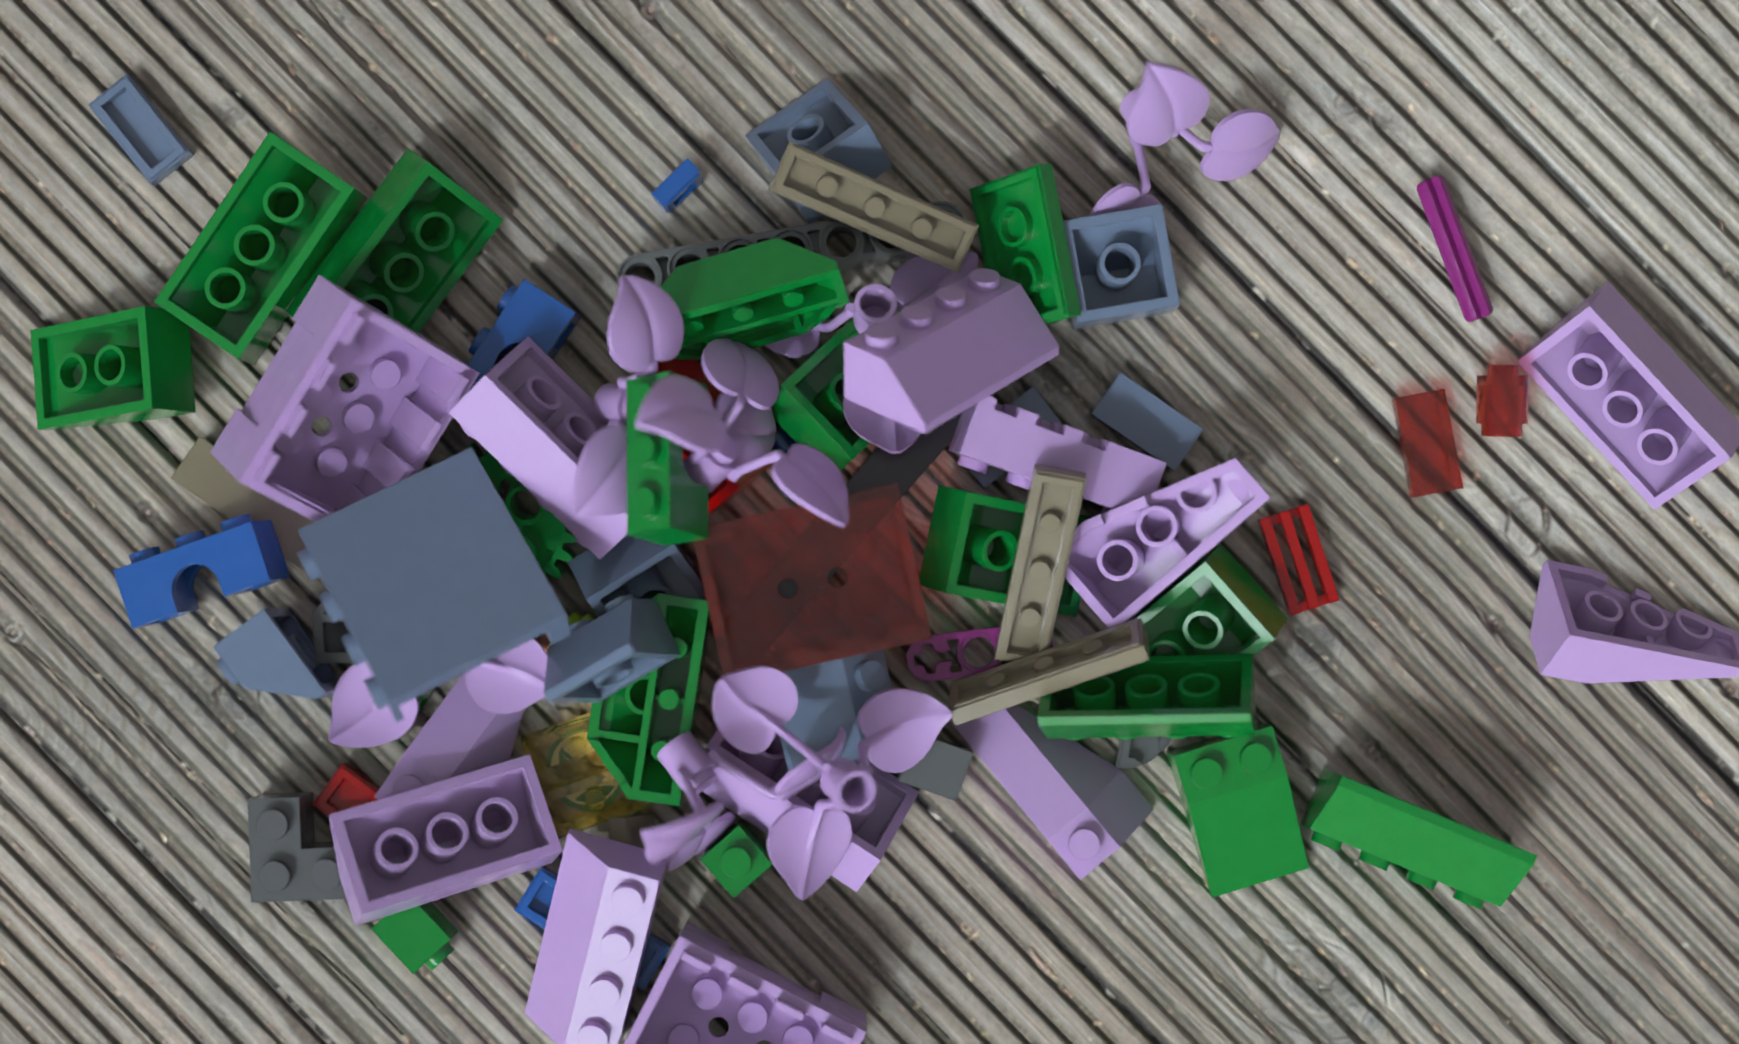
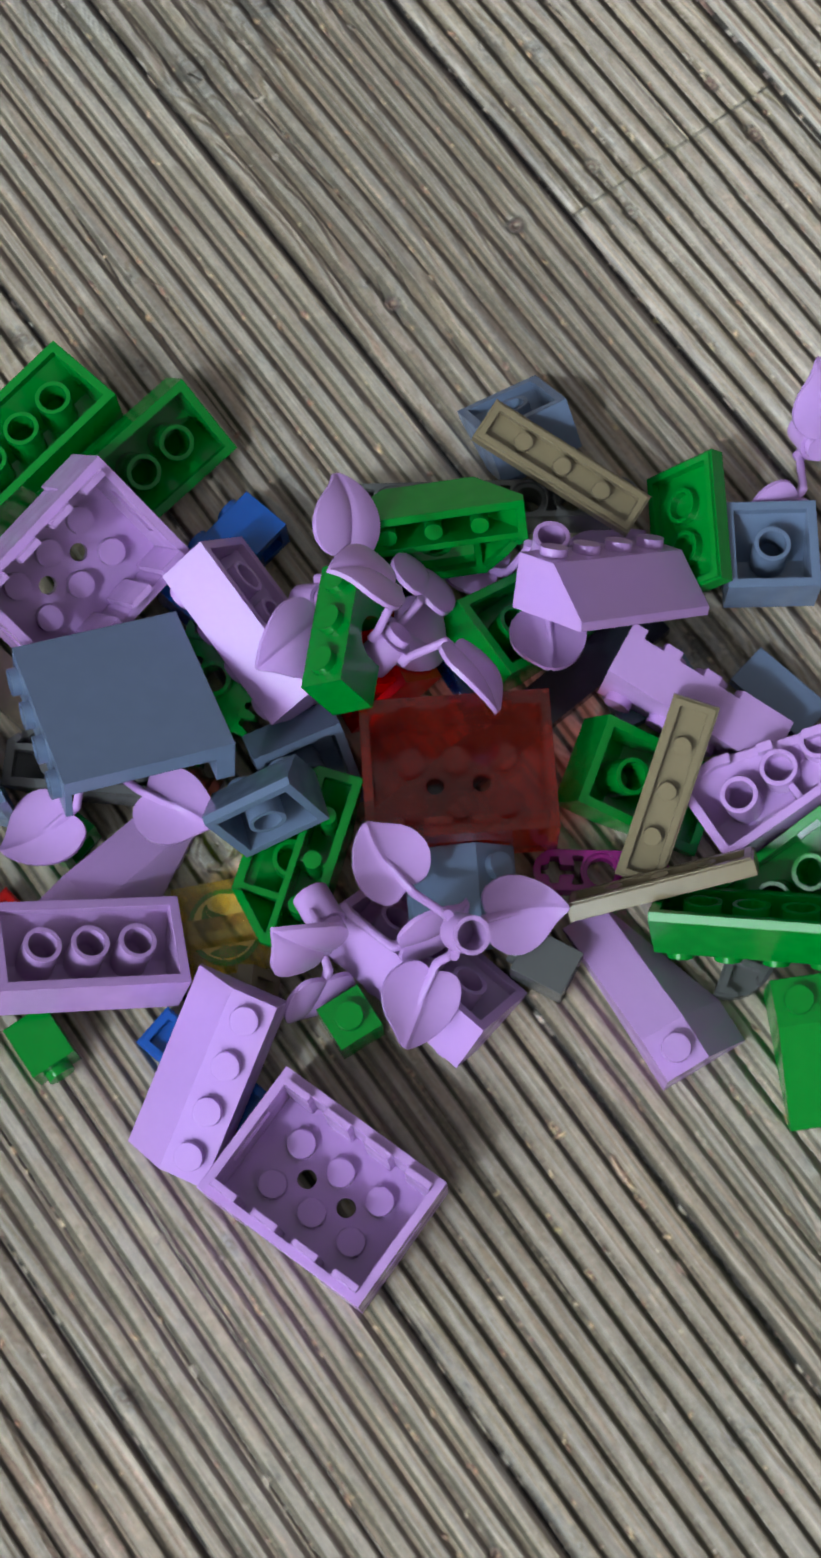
camera: 15 degrees right, 15 degrees down
(677, 186) = (392, 440): blue tile -> none

